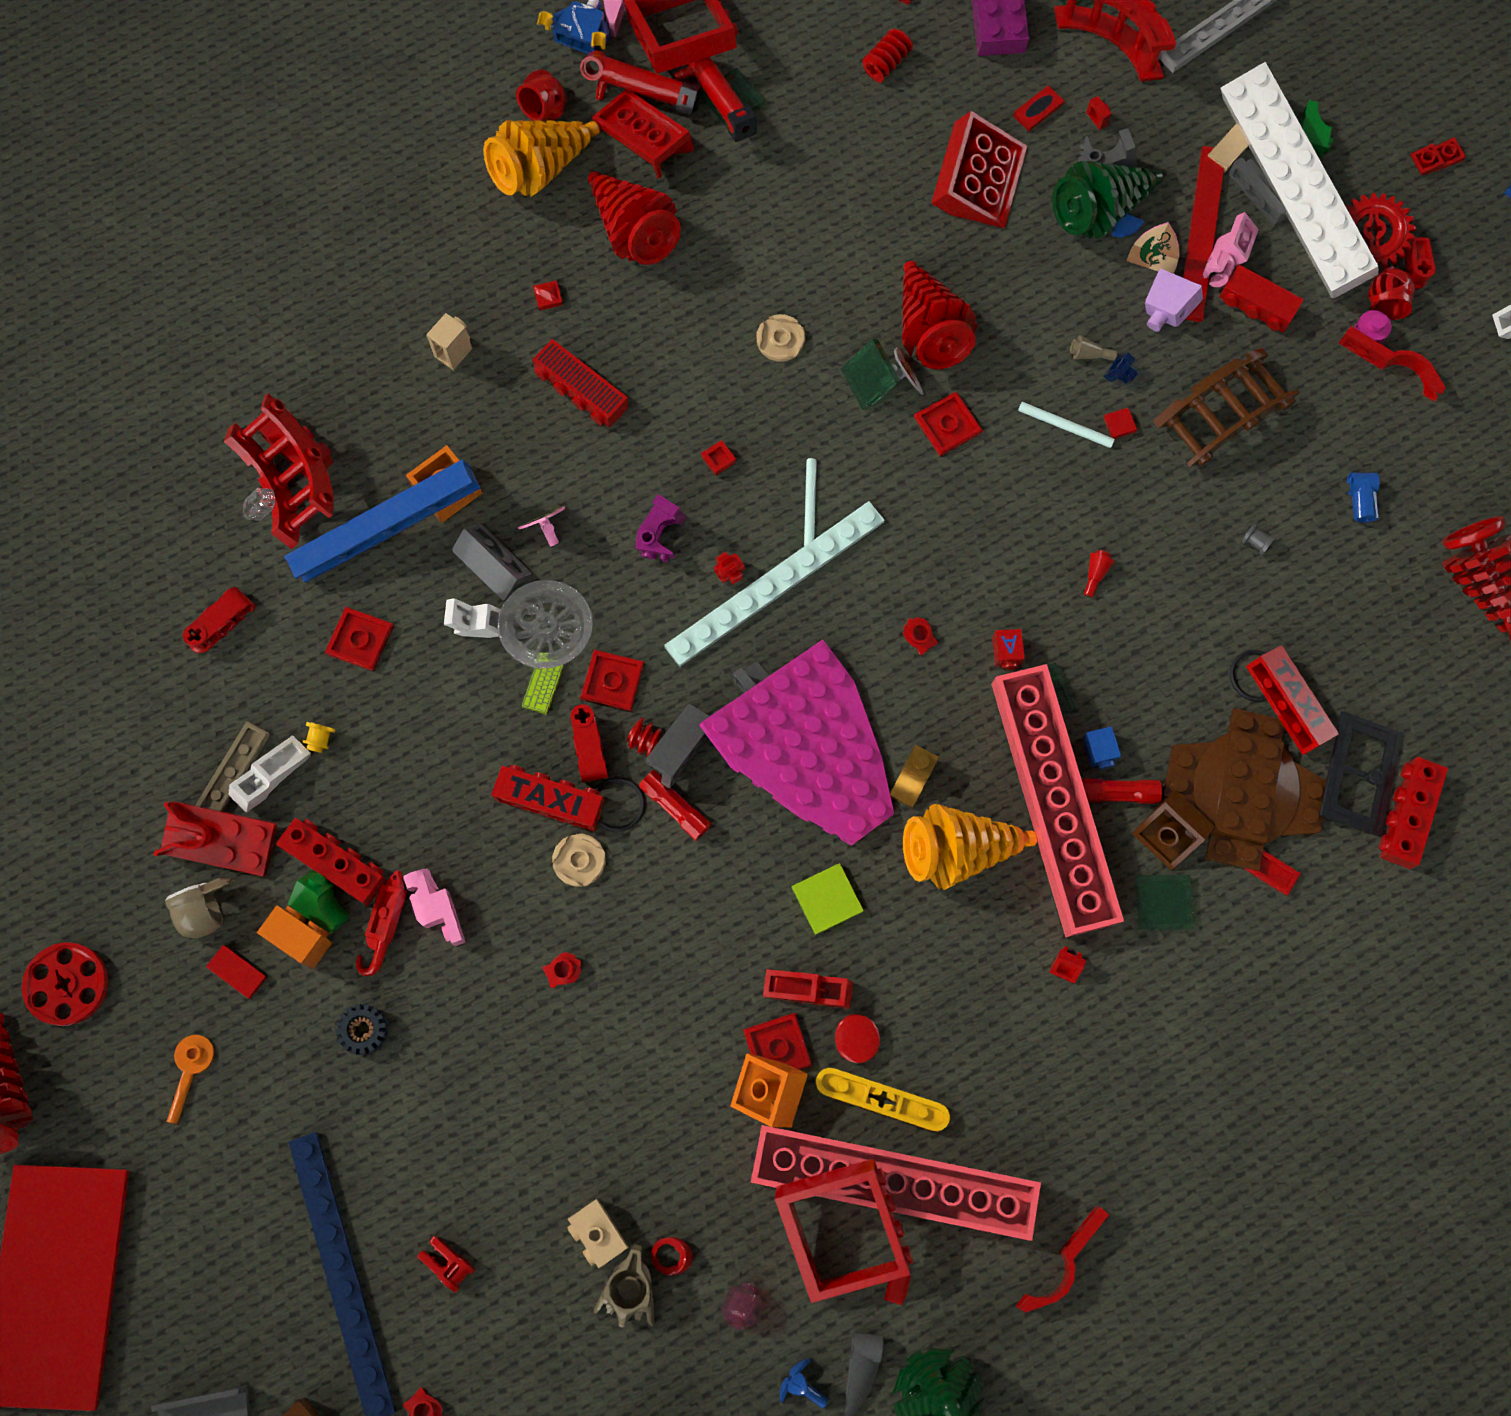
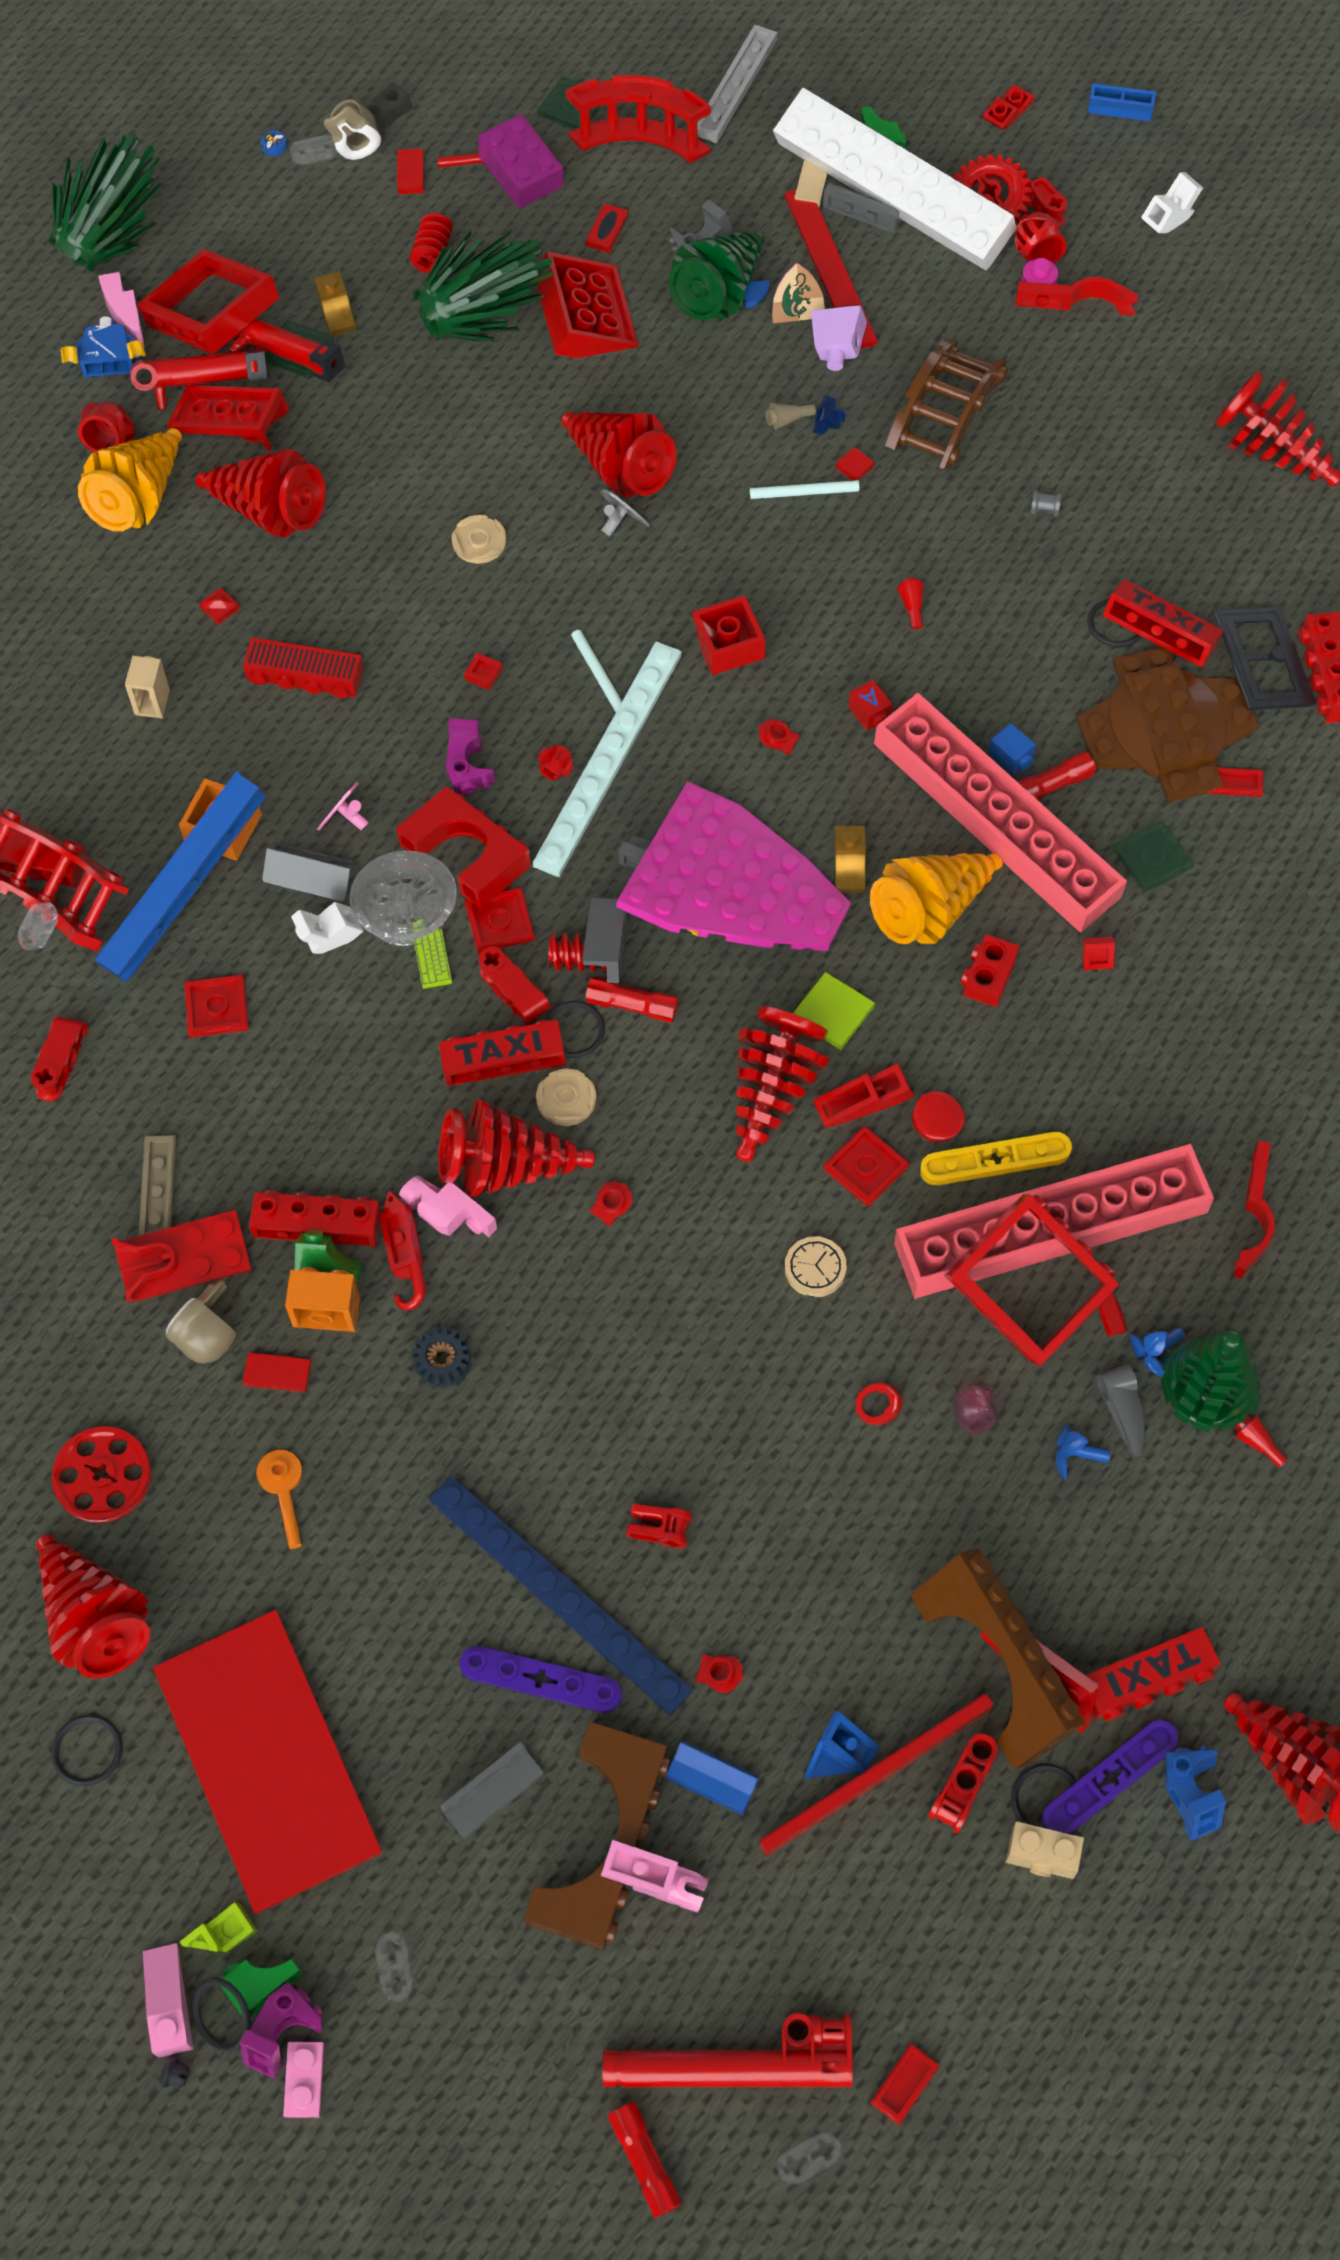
camera: 25 degrees left, 10 degrees down
(267, 773) = (198, 1172): white slope -> none
(310, 1358) = (573, 1686): none -> dark purple piece
(317, 737) = (230, 1111): yellow brick -> none
(489, 881) = (501, 1150): none -> red plant
(597, 1233) = (794, 1418): tan brick -> none
(620, 572) = (452, 816): none -> red arch
(629, 1290) = (857, 1450): dark tan piece -> none
(688, 1111) = (815, 1266): none -> tan tile
(744, 934) = (776, 1067): none -> red plant
(769, 1091) = (881, 1201): orange slope -> none
(781, 73) = (335, 303): none -> pearl gold arch
(870, 374) = (589, 527): clear green tile -> none
(882, 119) = (474, 286): none -> dark green plant
(914, 1337) = (1153, 1346): none -> blue plant
(928, 527) = (729, 635): none -> red slope
(948, 423) = (690, 540): red tile -> none
(974, 938) = (993, 971): none -> red brick
(1099, 112) = (668, 205): red plate -> none
(1173, 830) = (1123, 787): reddish brown slope -> none
(1231, 250) = (868, 268): bright pink plate -> none
(1260, 298) = (920, 297): red brick -> none
(1364, 491) = (1117, 417): blue piece -> none

